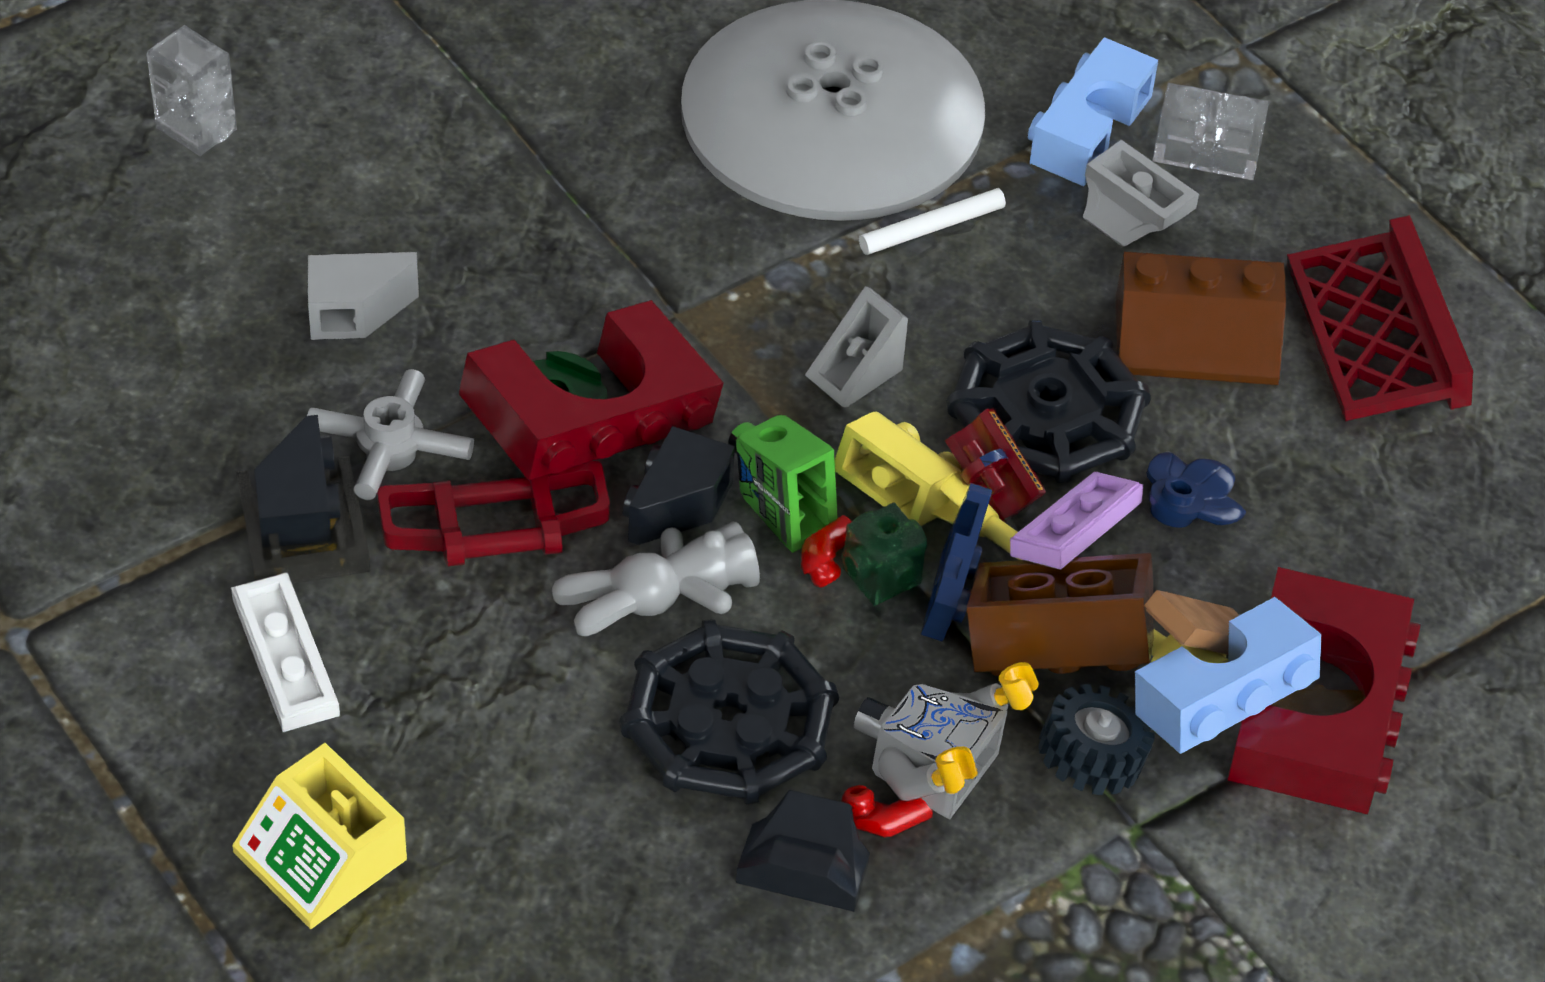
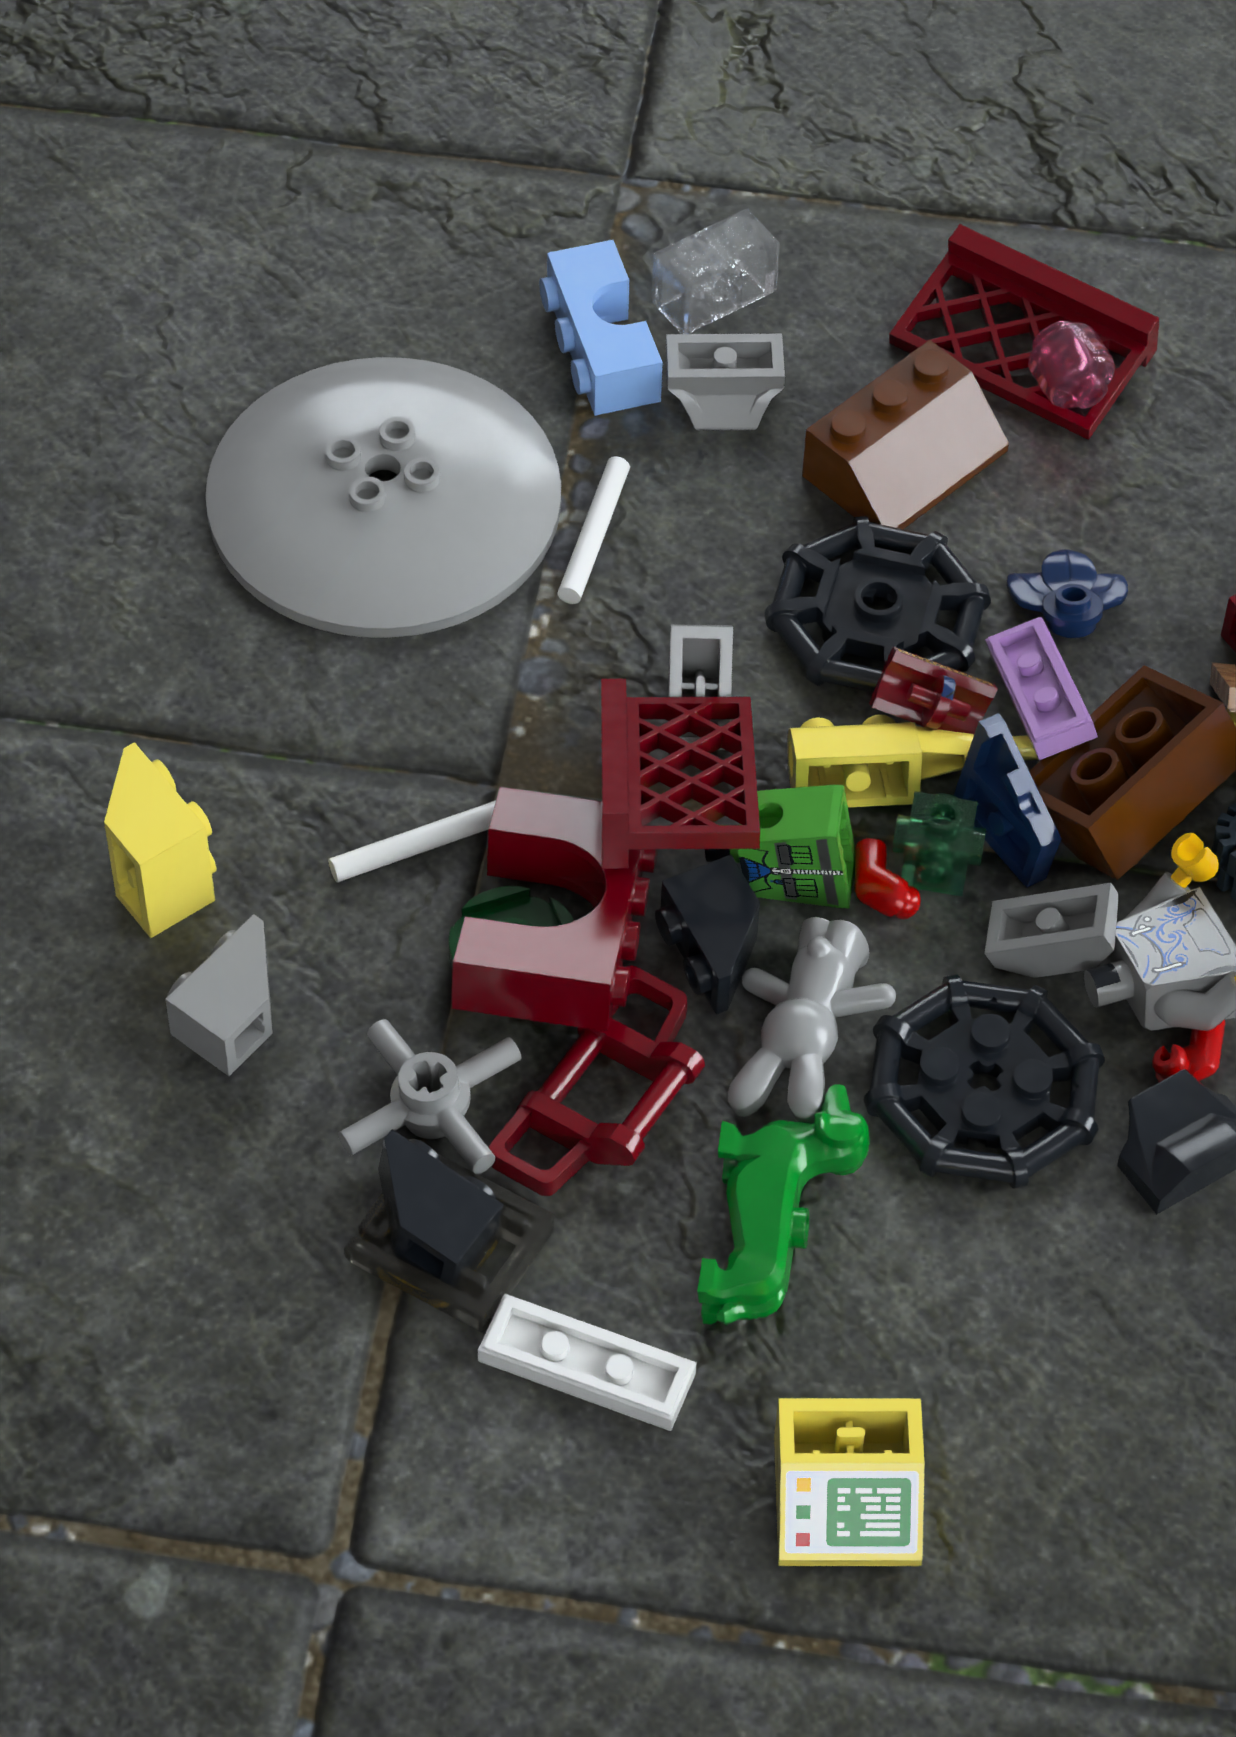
camera: 45 degrees left, 5 degrees up
(413, 170) = (157, 845): none -> light yellow slope
(493, 654) = (763, 1199): none -> green animal
(562, 295) = (411, 842): none -> white bar
(738, 338) = (631, 771): none -> dark red fence
(884, 659) = (1053, 931): none -> light grey slope
(1368, 352) = (1071, 365): none -> clear pink head

